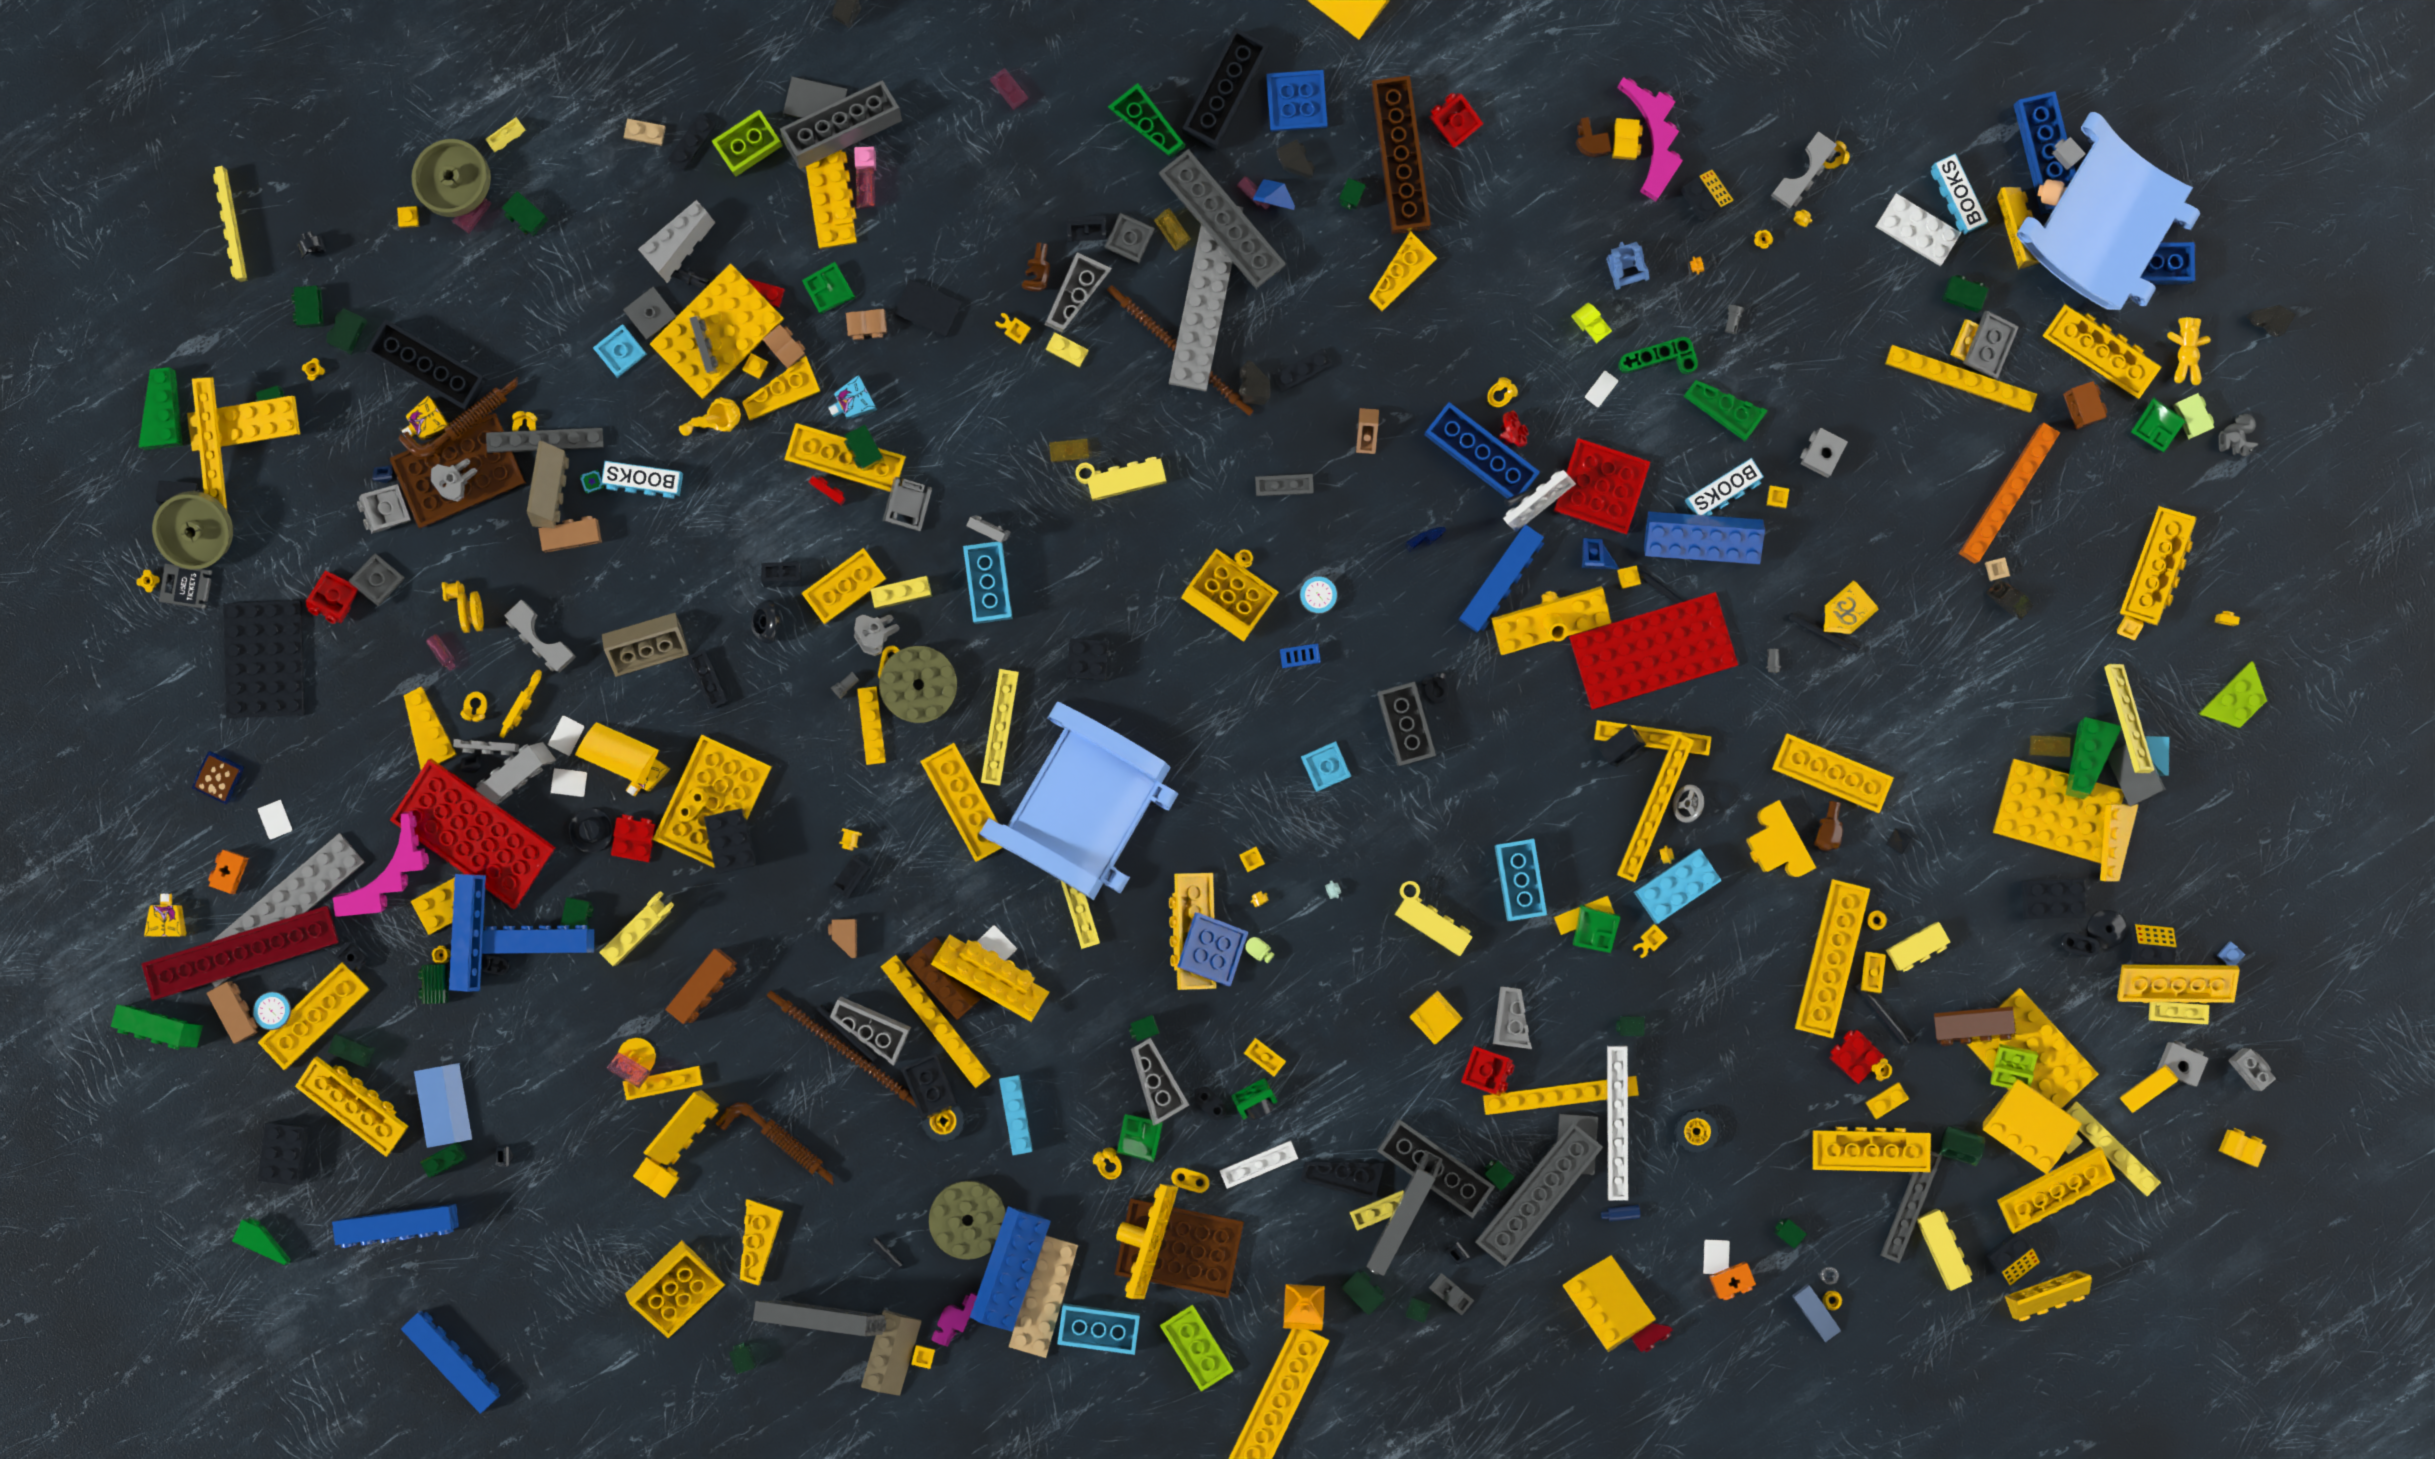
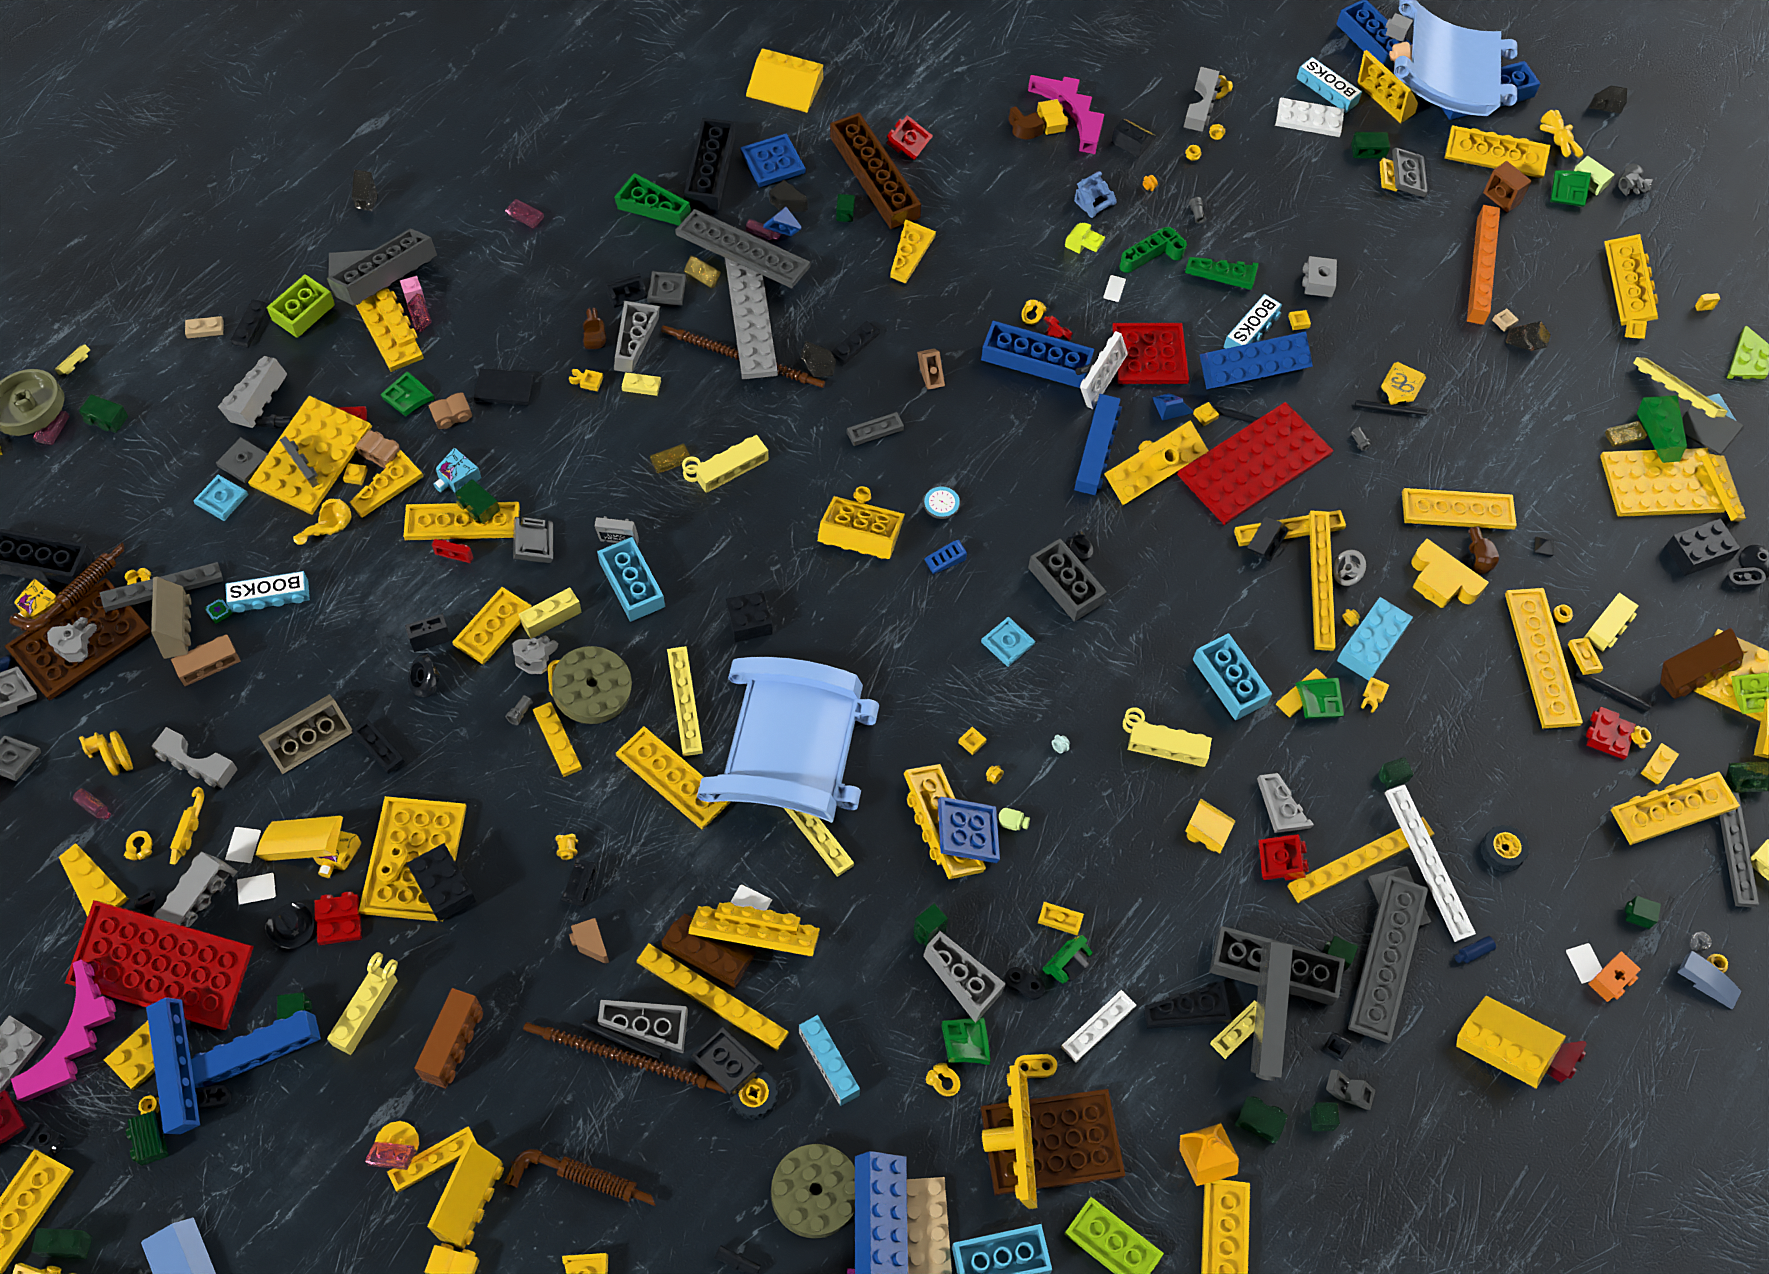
camera: 20 degrees left, 25 degrees down
(487, 748) = (148, 878): light grey wing -> none
(1429, 536) = (1018, 427): clear blue slope -> none
(1961, 379) = (1399, 202): yellow plate -> none

